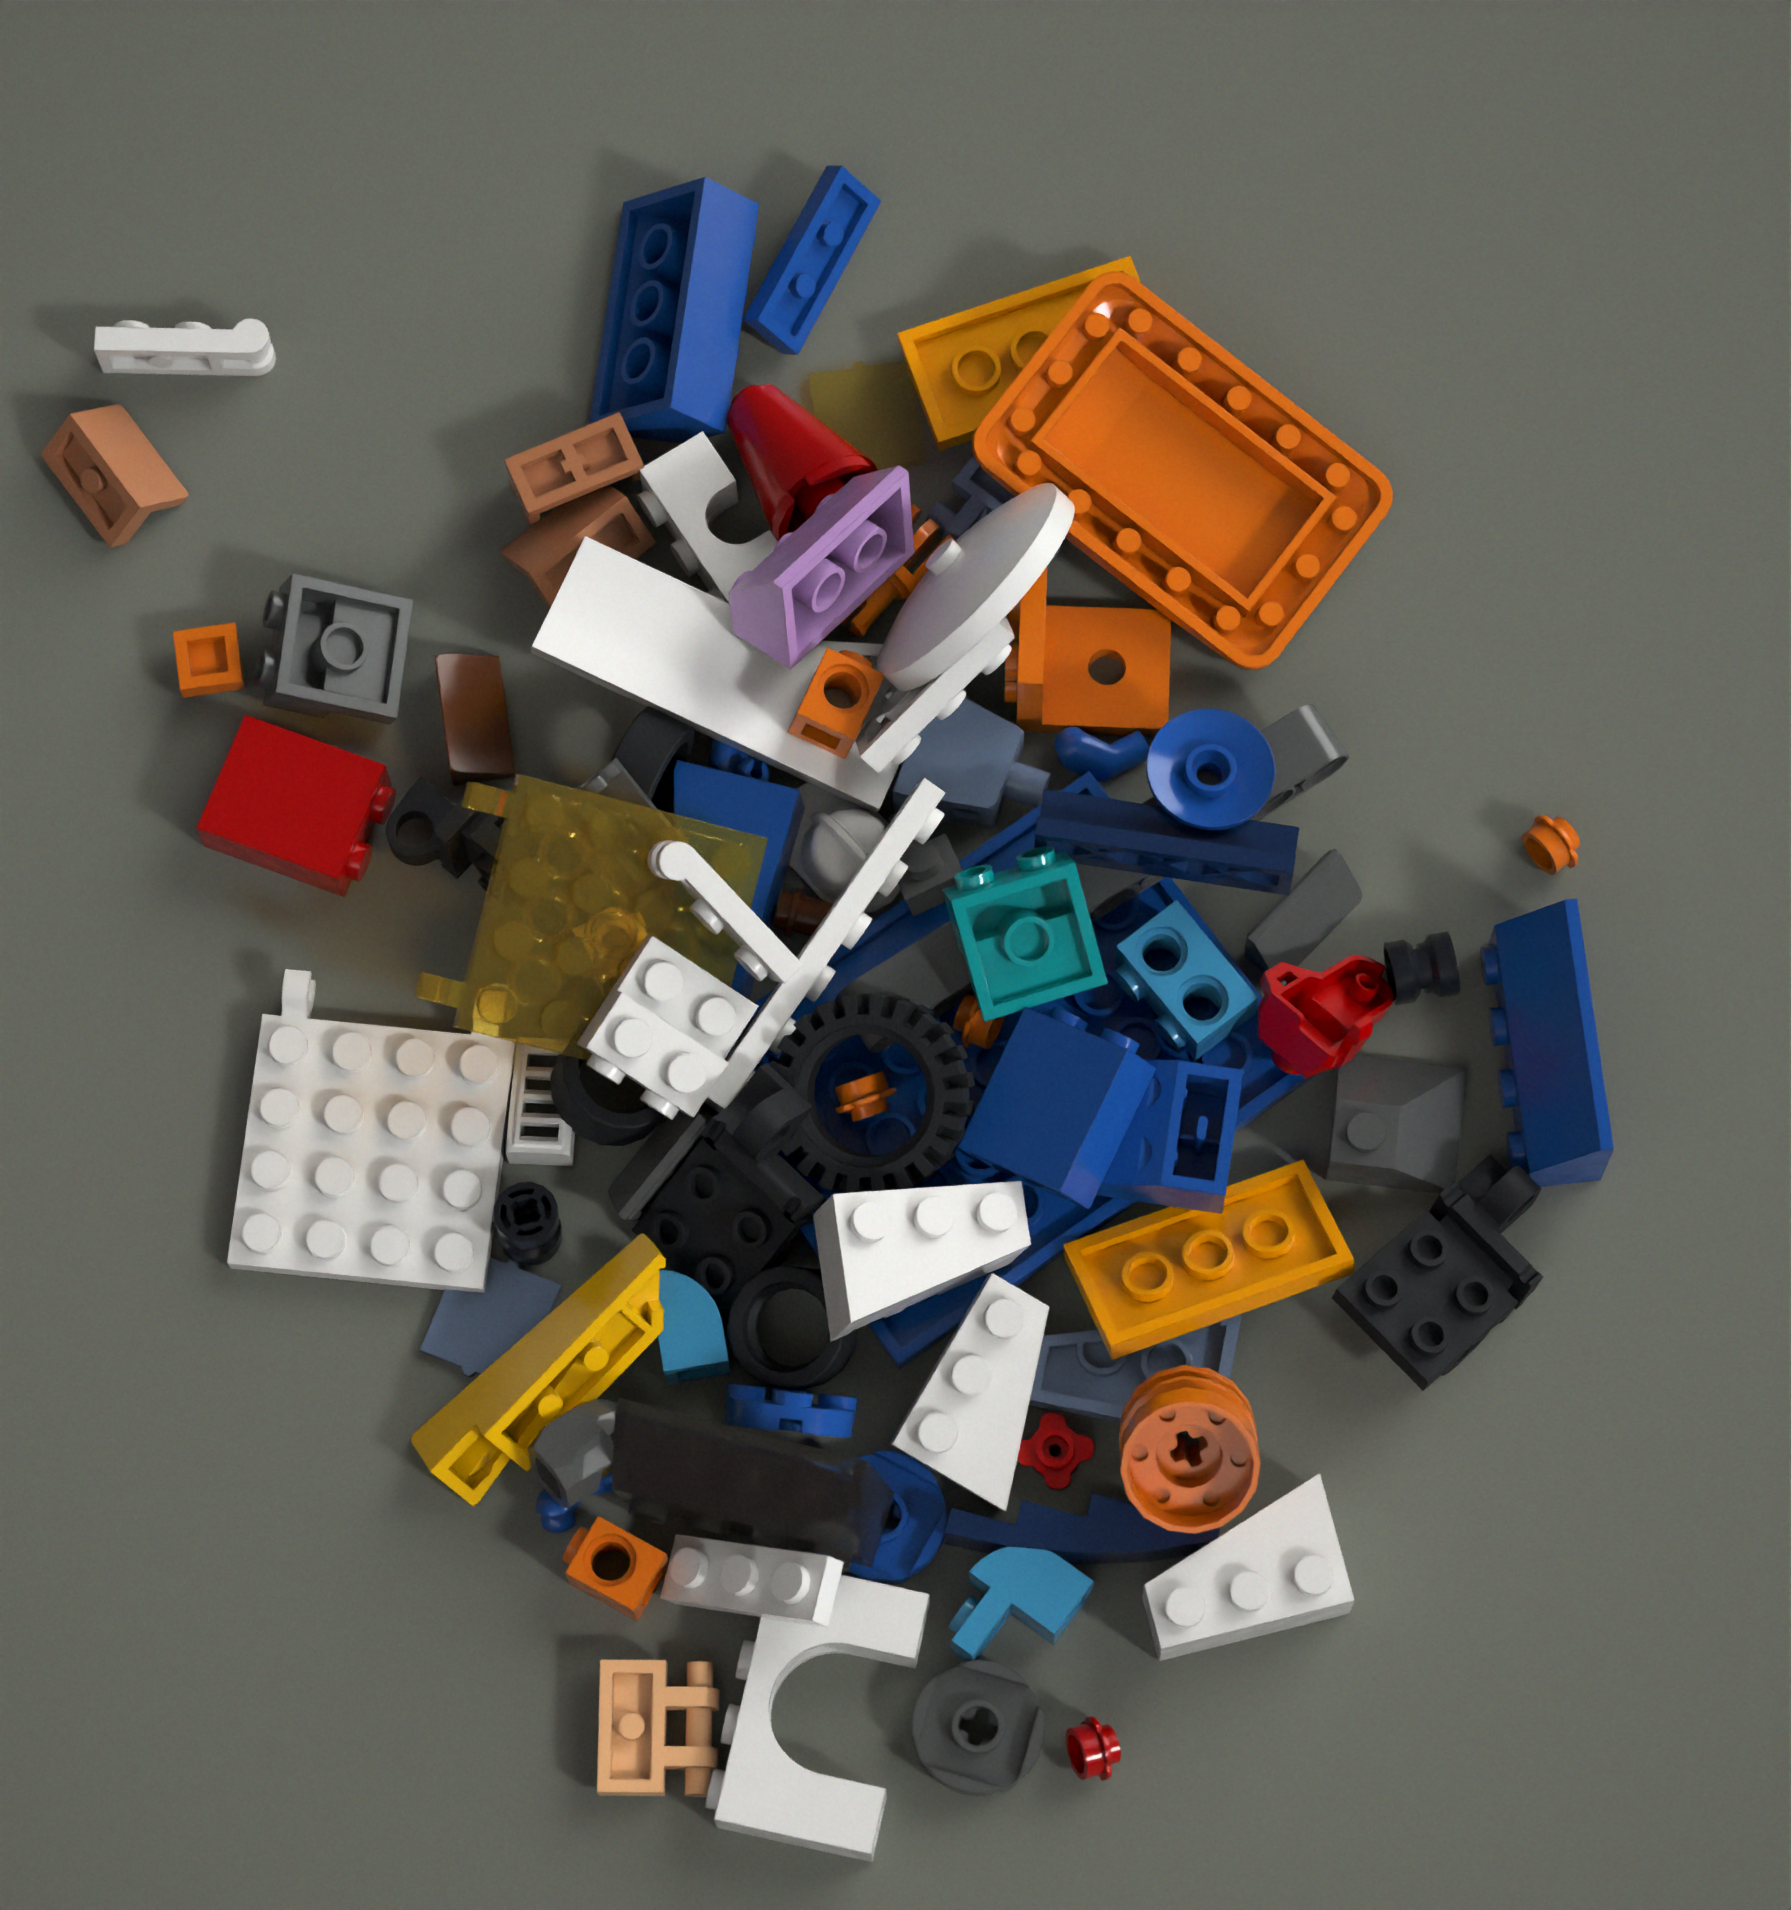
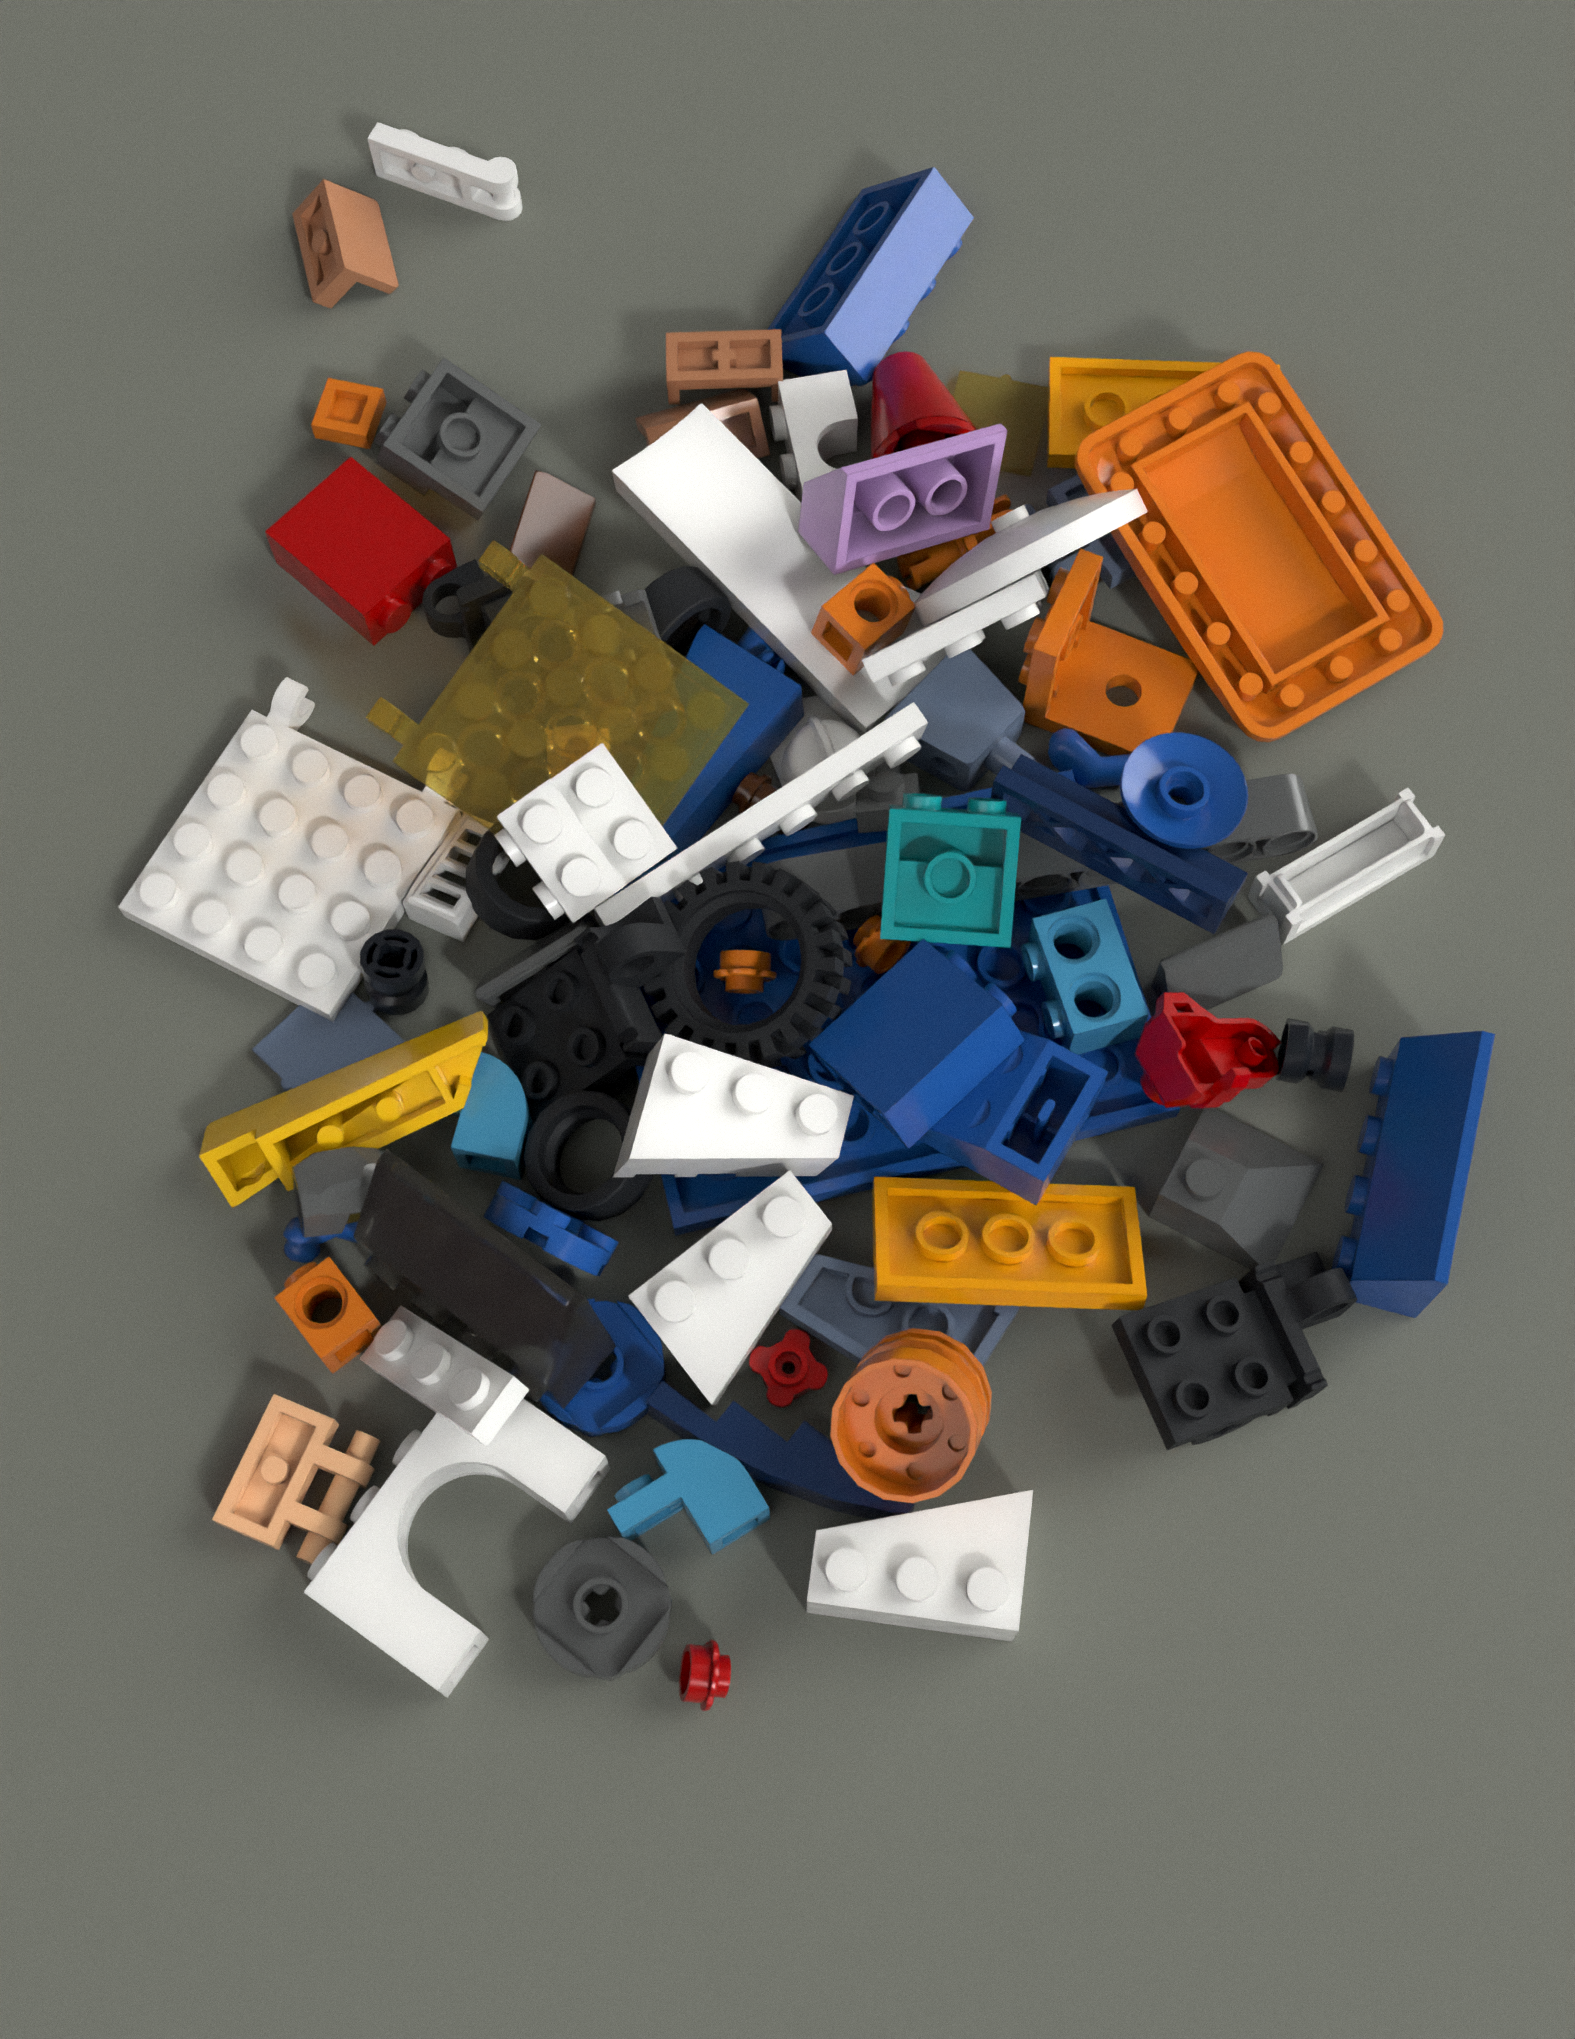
camera: 20 degrees right, 5 degrees down
(721, 909) = (675, 742): white plate -> none
(812, 260) = (1000, 278): blue plate -> none
(1384, 770) = (1346, 867): none -> white container
(1551, 844) = (1480, 990): orange plate -> none

